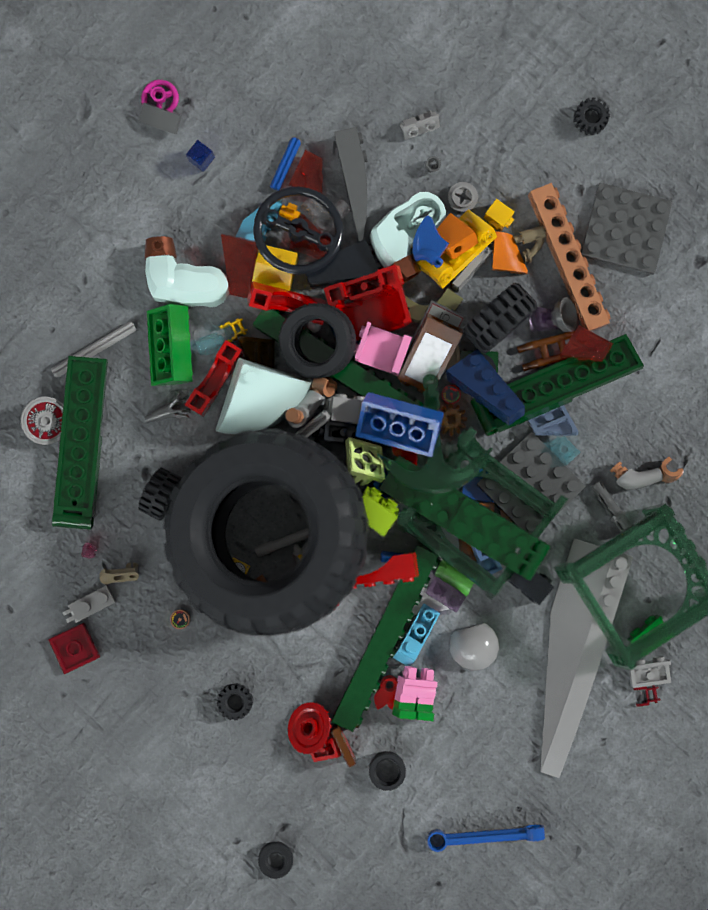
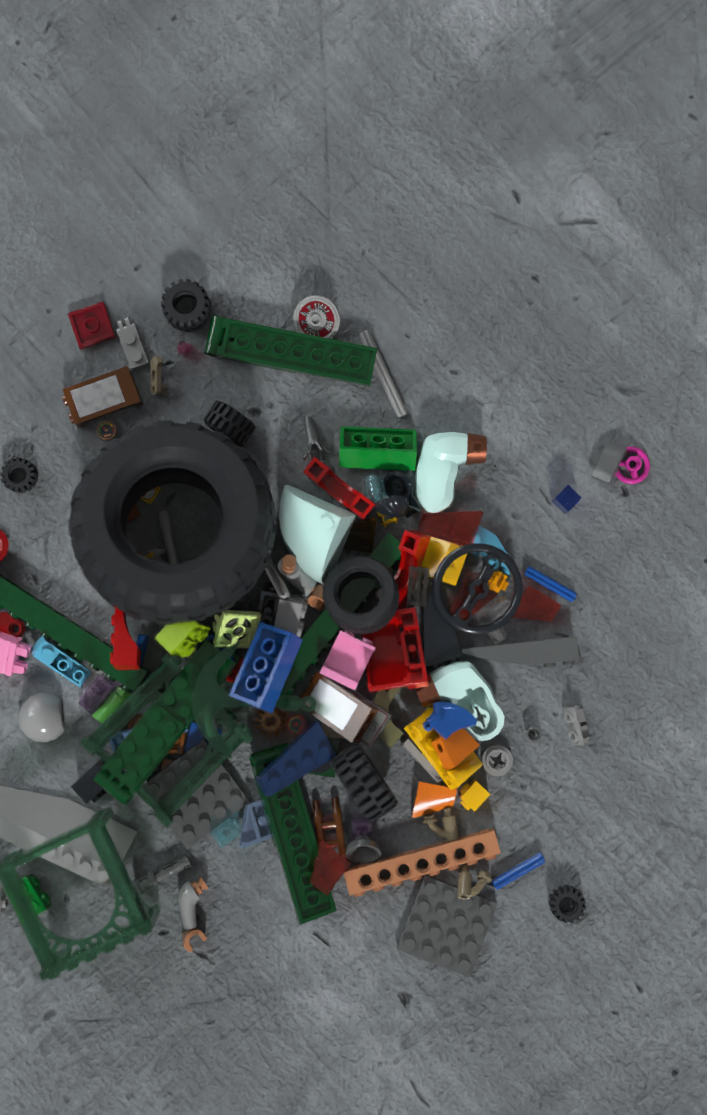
camera: 90 degrees right, 0 degrees up
(28, 558) = (182, 290): none -> black tyre
(146, 628) = (101, 396): none -> panel
(216, 316) = (401, 496): none -> black animal
(302, 288) = (418, 586): none -> clear smoke slope
(566, 166) = (518, 871): none -> blue axle
(590, 213) = (464, 888): none -> dark tan plant

